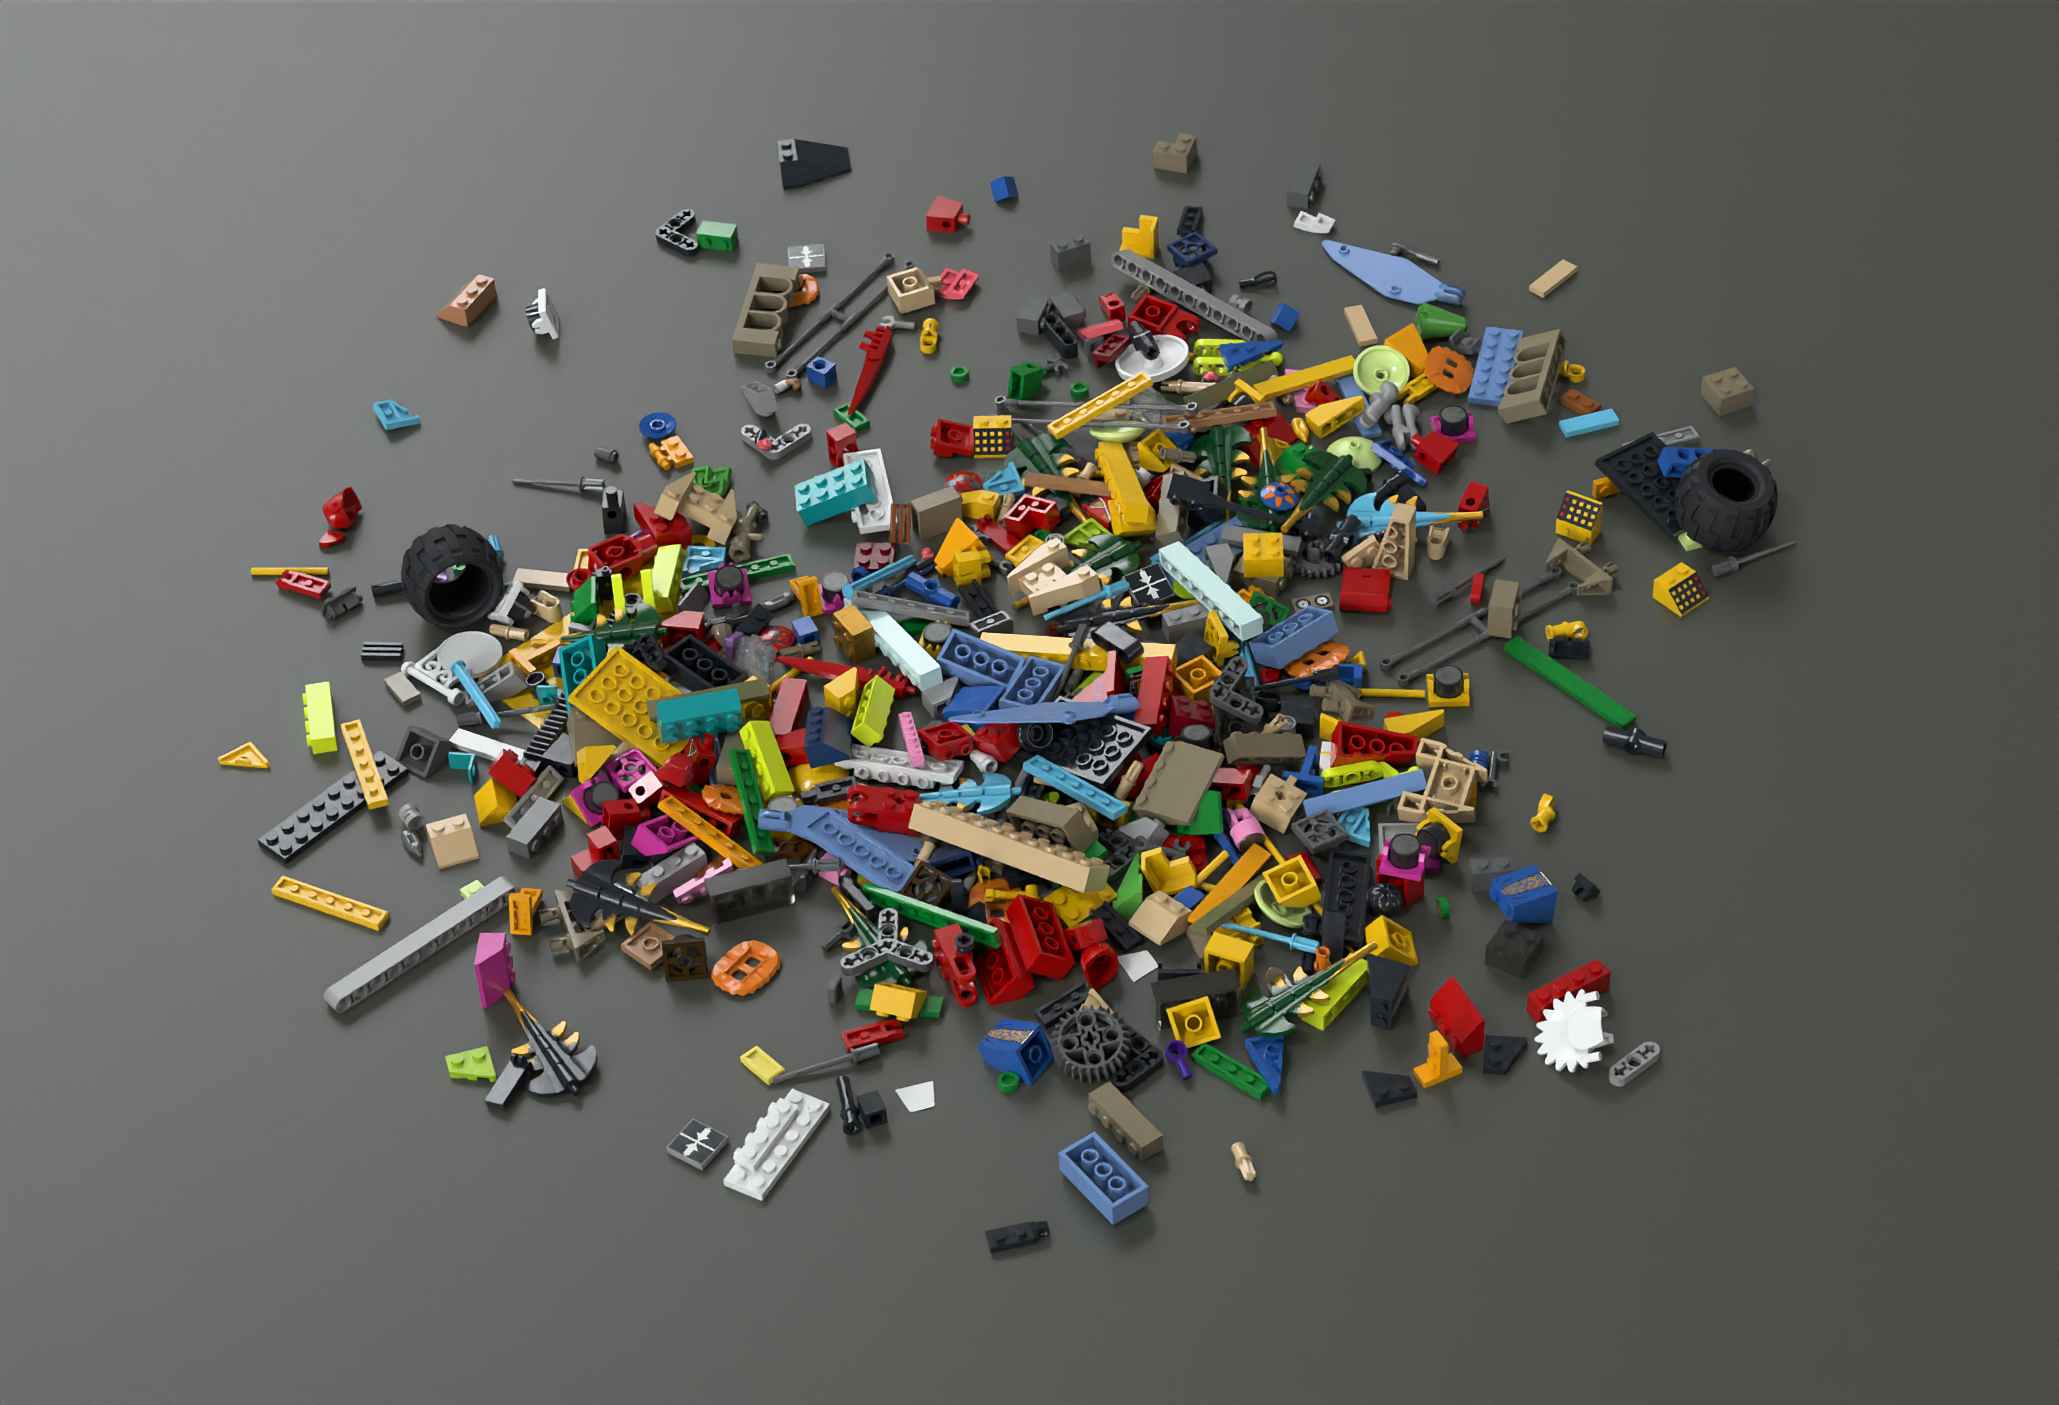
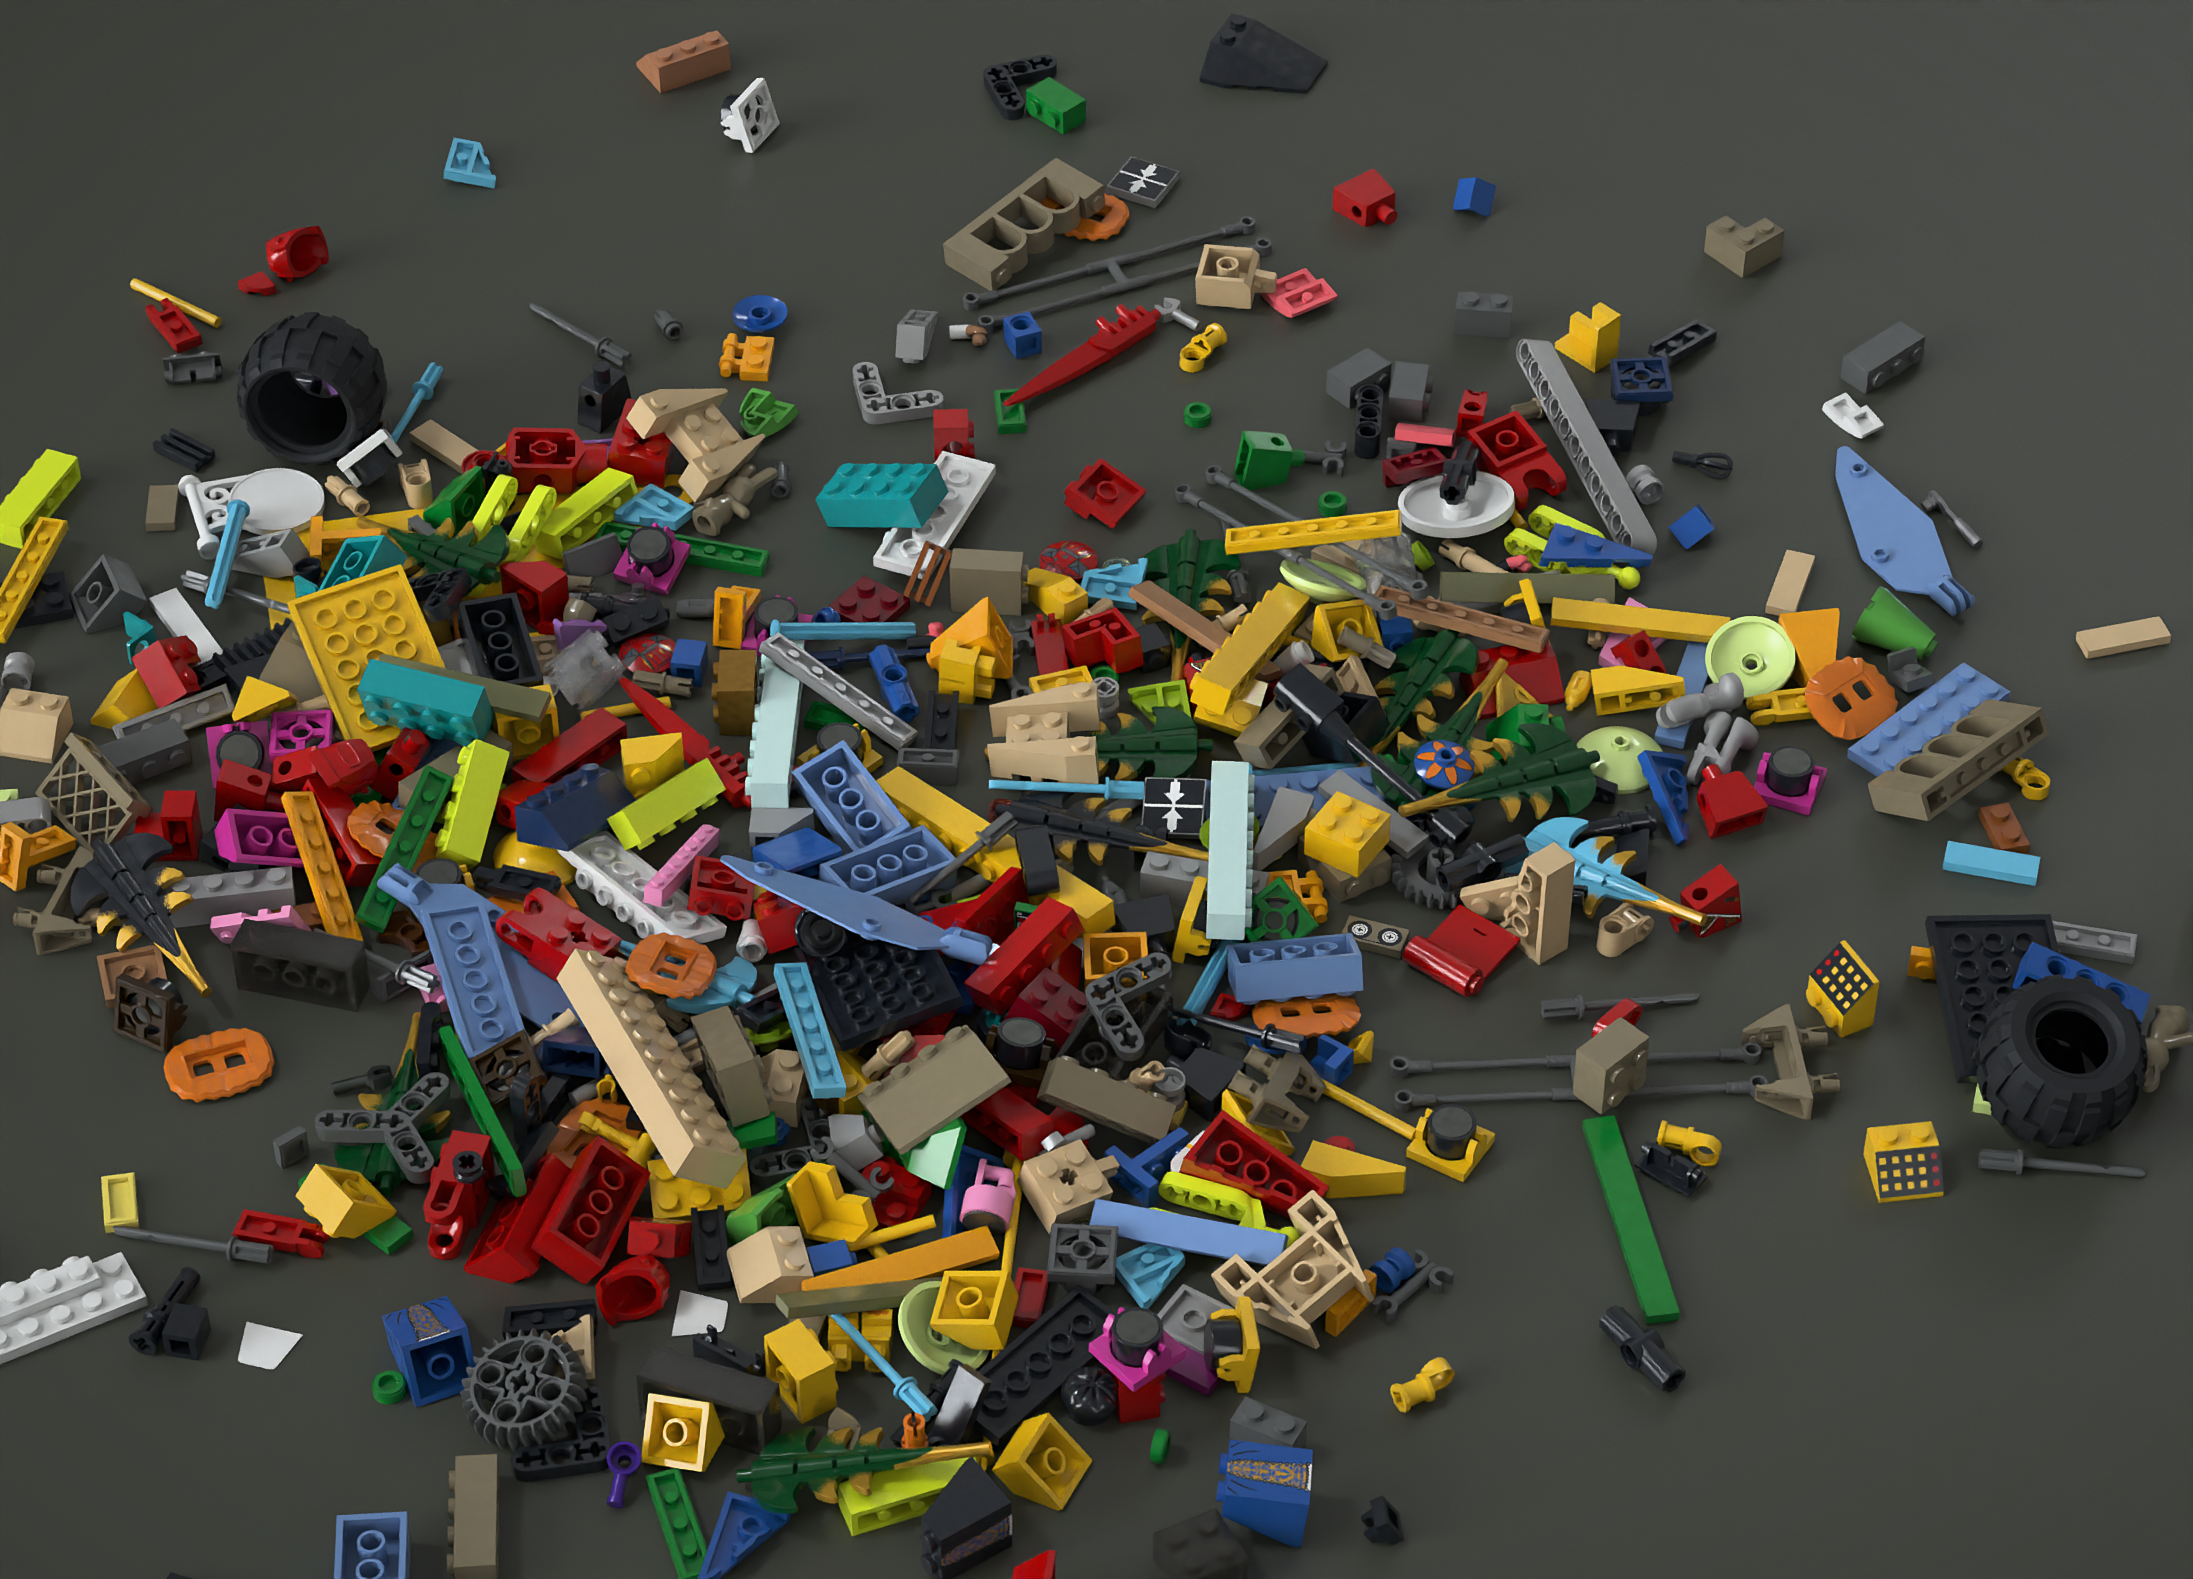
camera: 30 degrees right, 0 degrees up
(531, 844) = (104, 774): none -> dark tan fence
(761, 440) = (860, 390): arm -> none
(977, 786) = (649, 959): none -> orange piece
(992, 436) = (1158, 513): slope -> none

